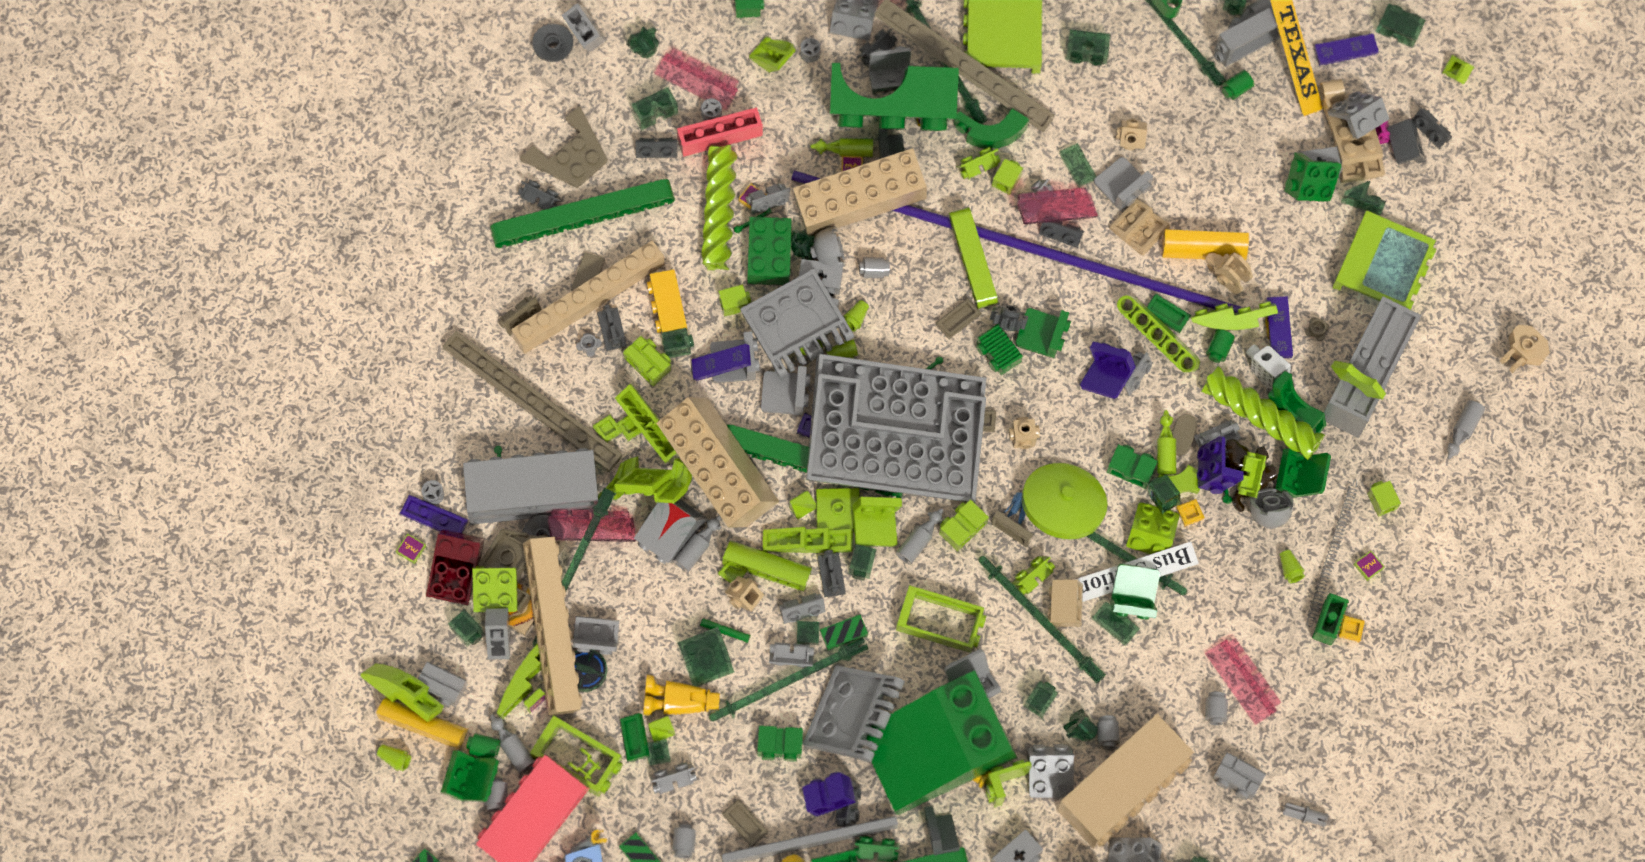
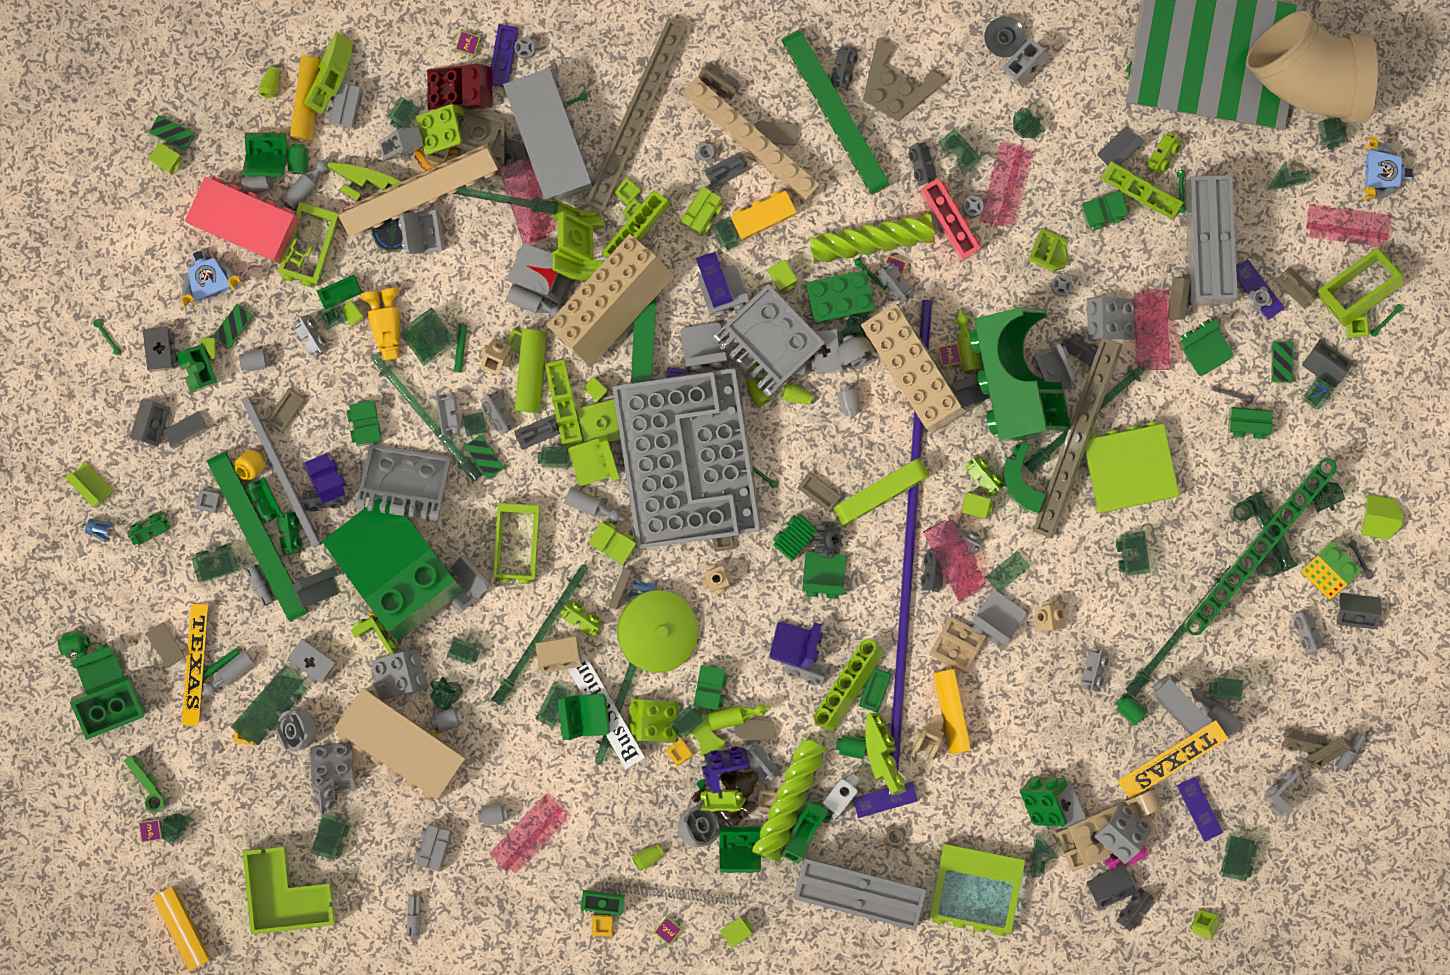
camera: 80 degrees right, 15 degrees up
(1199, 112) = (1098, 662): none -> light grey hinge
(1256, 438) = (766, 800): none -> tan tile
(1350, 374) = (829, 880): lime tile -> none

